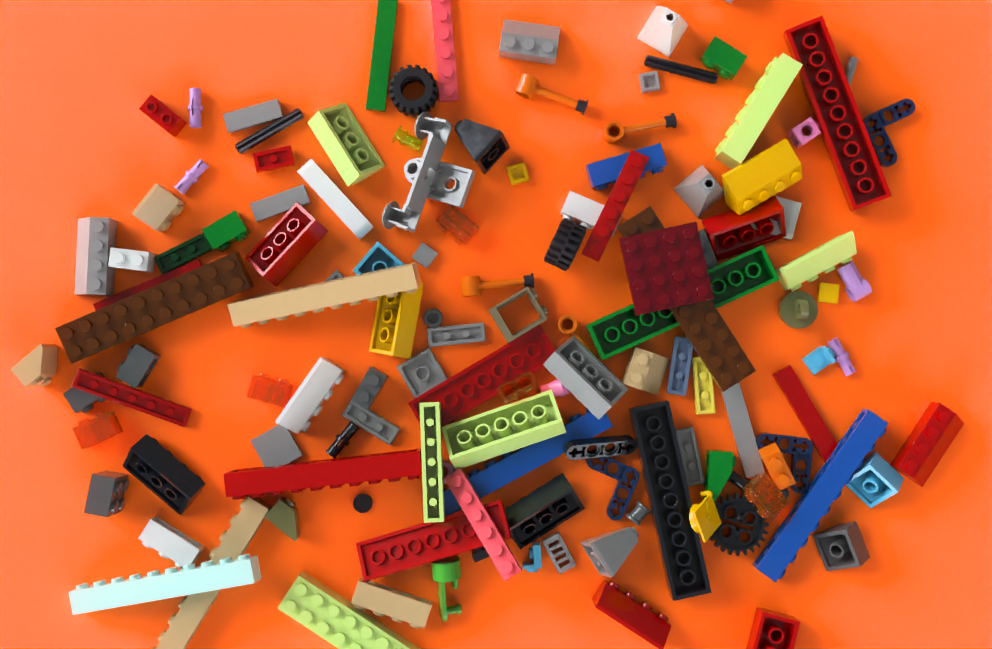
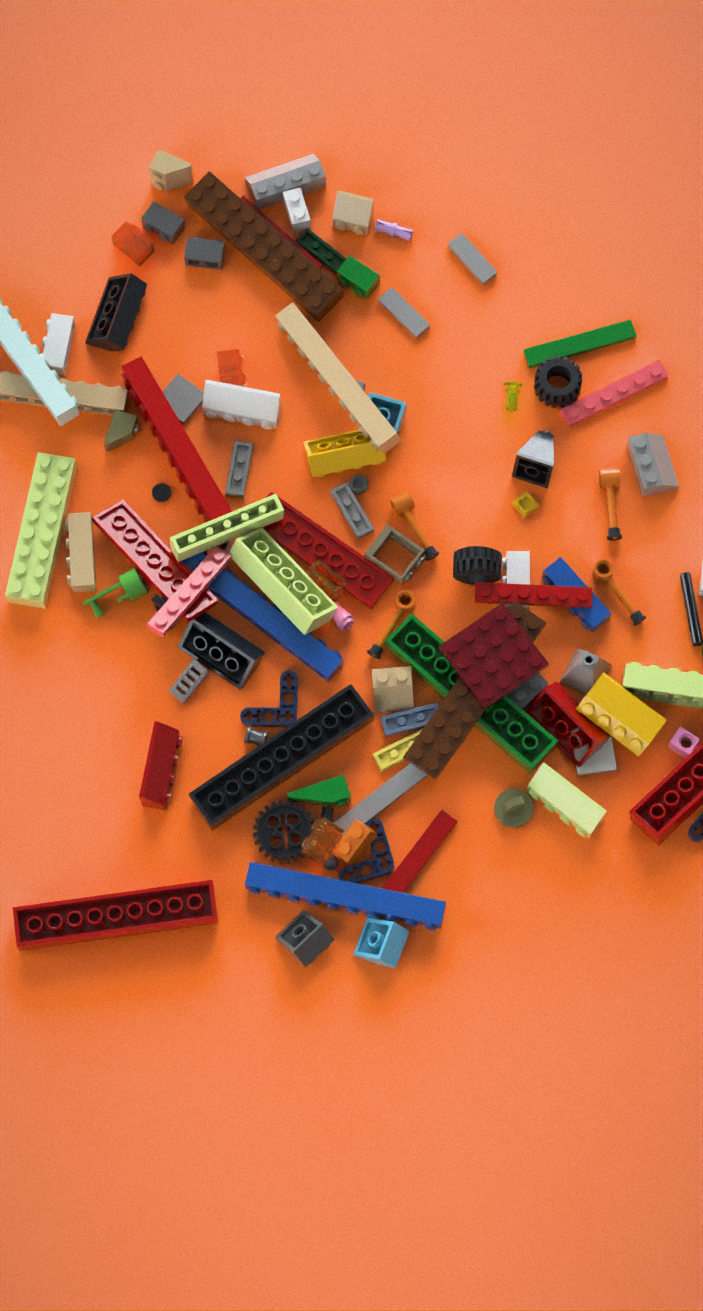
camera: 70 degrees right, 15 degrees down
(106, 493) = (80, 271): dark grey brick -> none
(131, 397) = (174, 259): red tile -> none
(163, 115) = (437, 184): red brick -> none
(195, 108) = (456, 208): lavender pin -> none
(269, 131) = (465, 277): black axle -> none
(273, 159) = (441, 291): red plate -> none
(286, 244) = (368, 332): red slope -> none
(334, 449) = (213, 450): black pin -> none
(335, 199) = (429, 356): white beam -> none
(345, 143) = (483, 345): yellowish green slope -> none
(369, 388) = (270, 453): dark grey brick -> none
(422, 372) = (304, 494): light grey tile -> none
(424, 255) = (412, 454): light grey tile -> none
(429, 176) = (485, 423): light grey piece -> none
(457, 224) = (453, 469): clear orange brick -> none
(534, 553) = (177, 661): medium azure bracket -> none
(585, 377) = (363, 632): light grey slope -> none
(600, 444) = (299, 676): black beam -> none
(610, 549) = (213, 723): light grey slope -> none
(649, 82) = (666, 586): light grey tile -> none
(690, 456) = (330, 763): light grey tile -> none
(704, 516) = (279, 790): yellow hat -> none
(819, 359) = (474, 846): medium azure bracket -> none
(828, 293) = (542, 829): yellow tile -> none
(841, 356) = (487, 866): lavender pin -> none
(855, 285) = (560, 851): lavender piece -> none
(927, 443) = (438, 982): red slope -> none

